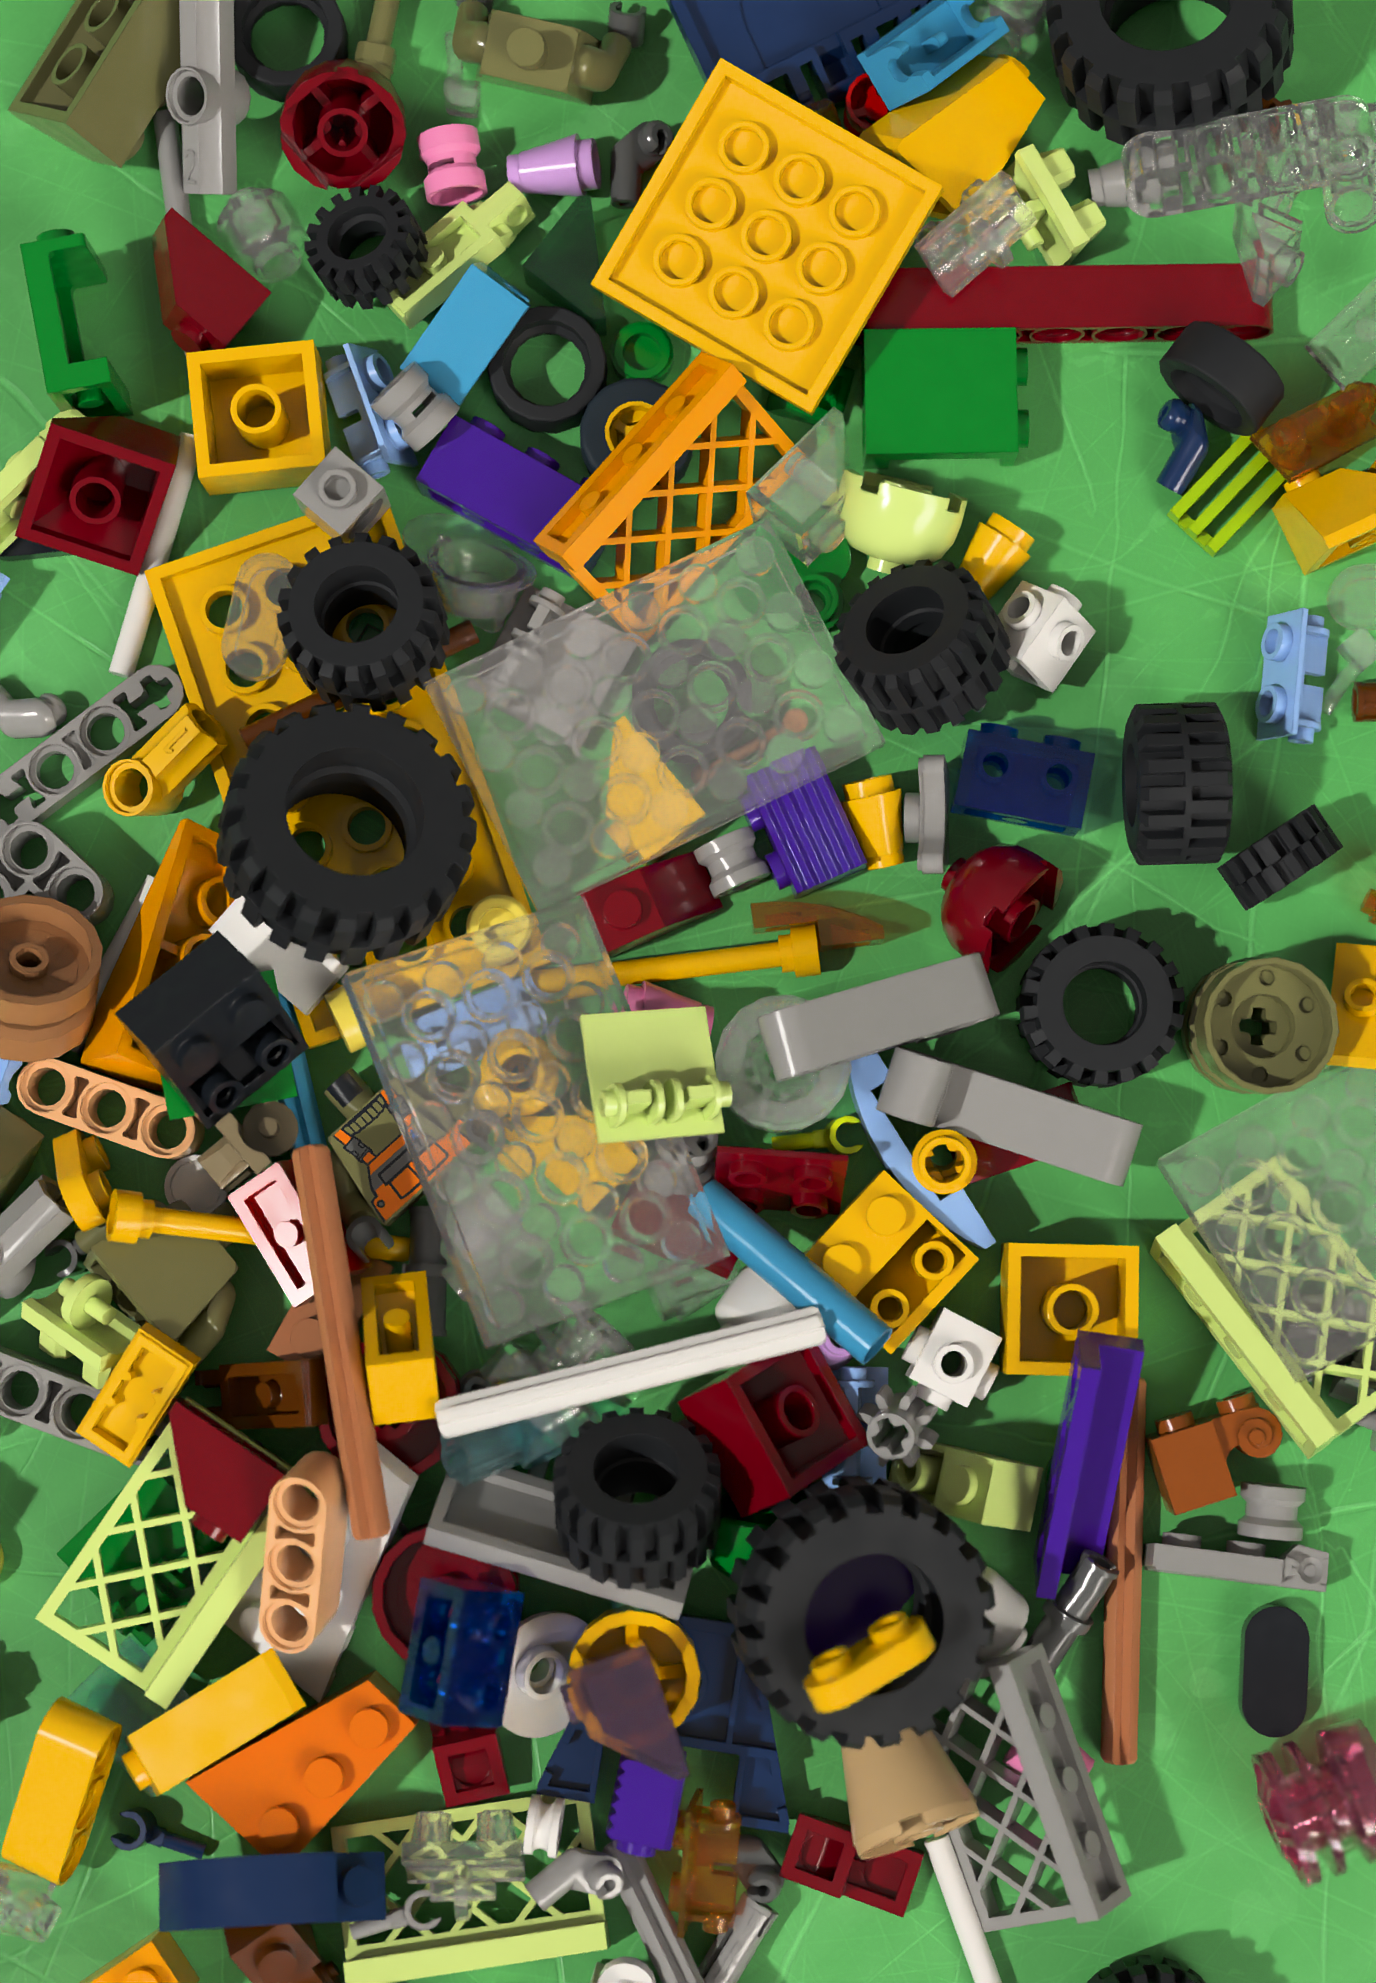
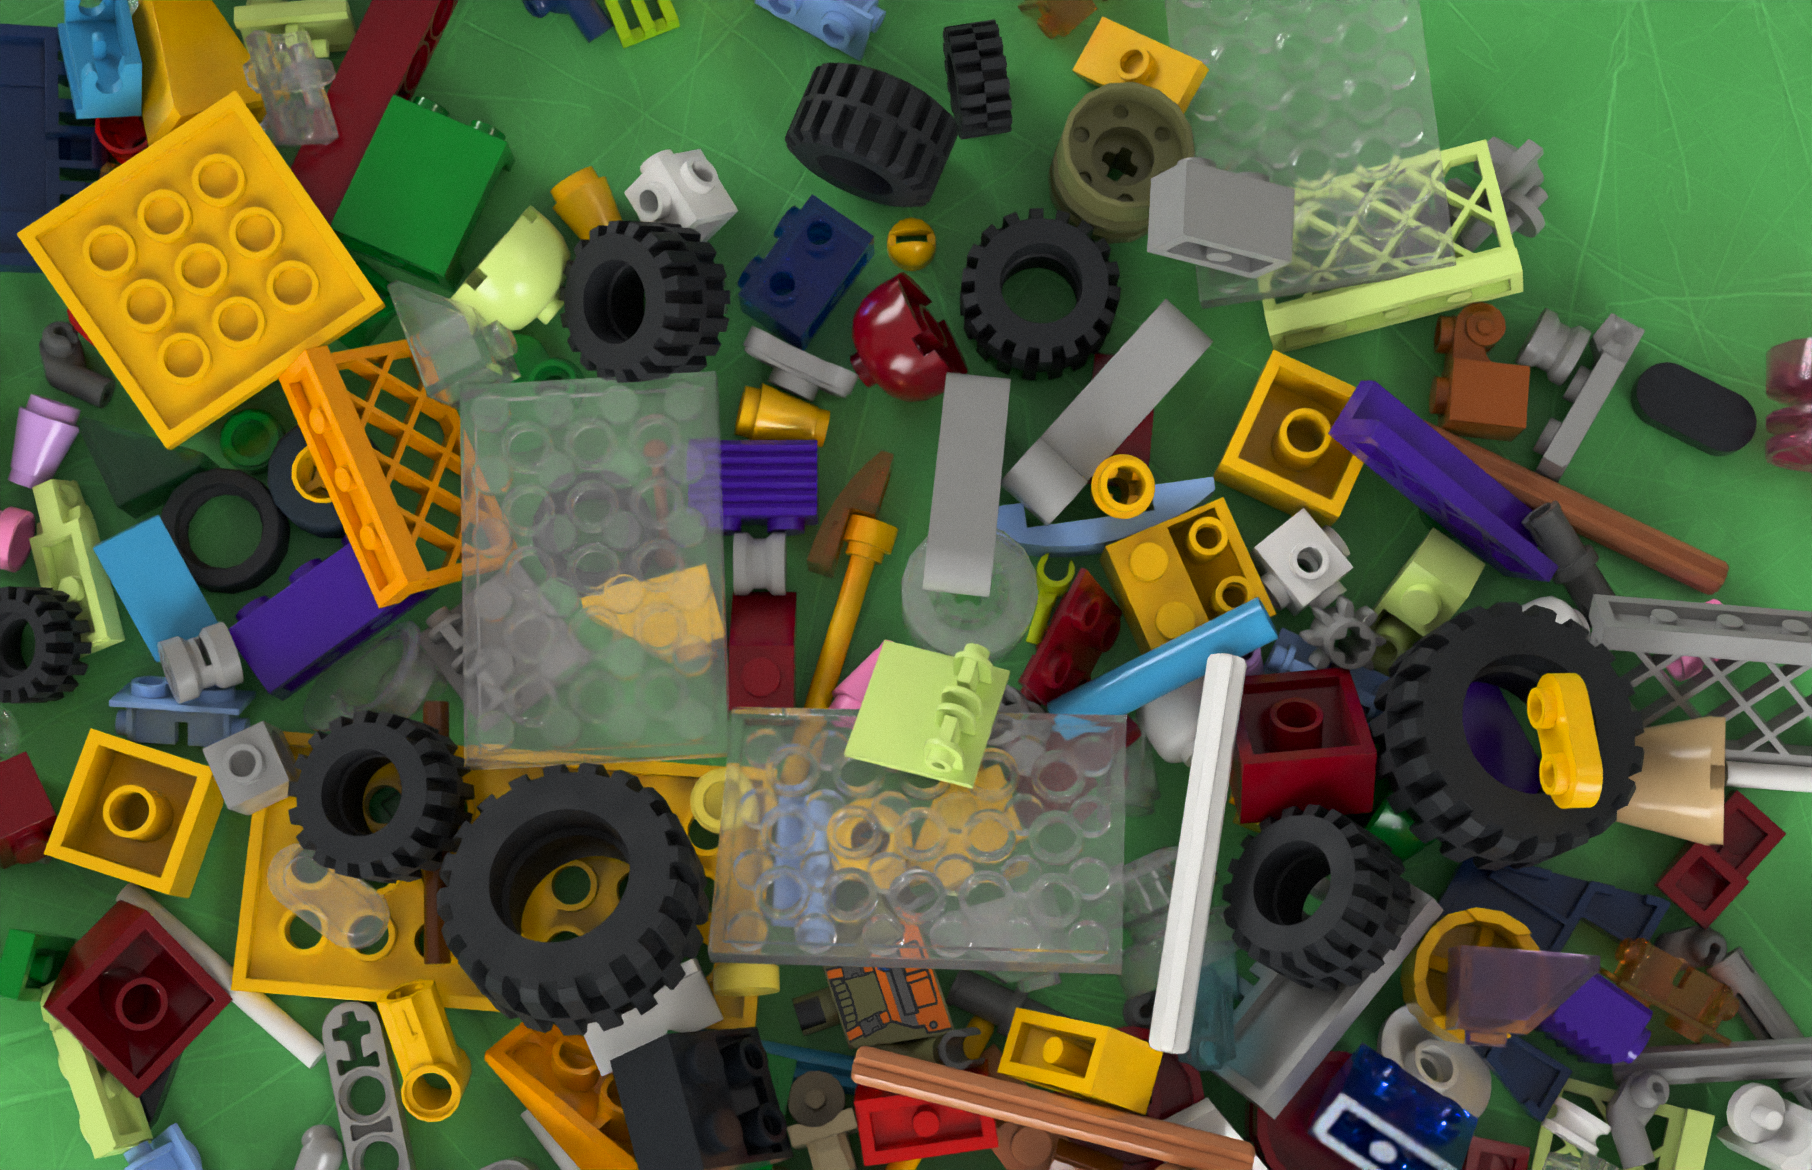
camera: 70 degrees left, 5 degrees down
(1088, 873) = (911, 254): none -> yellow hinge
(1237, 1142) = (1221, 218): none -> light grey brick

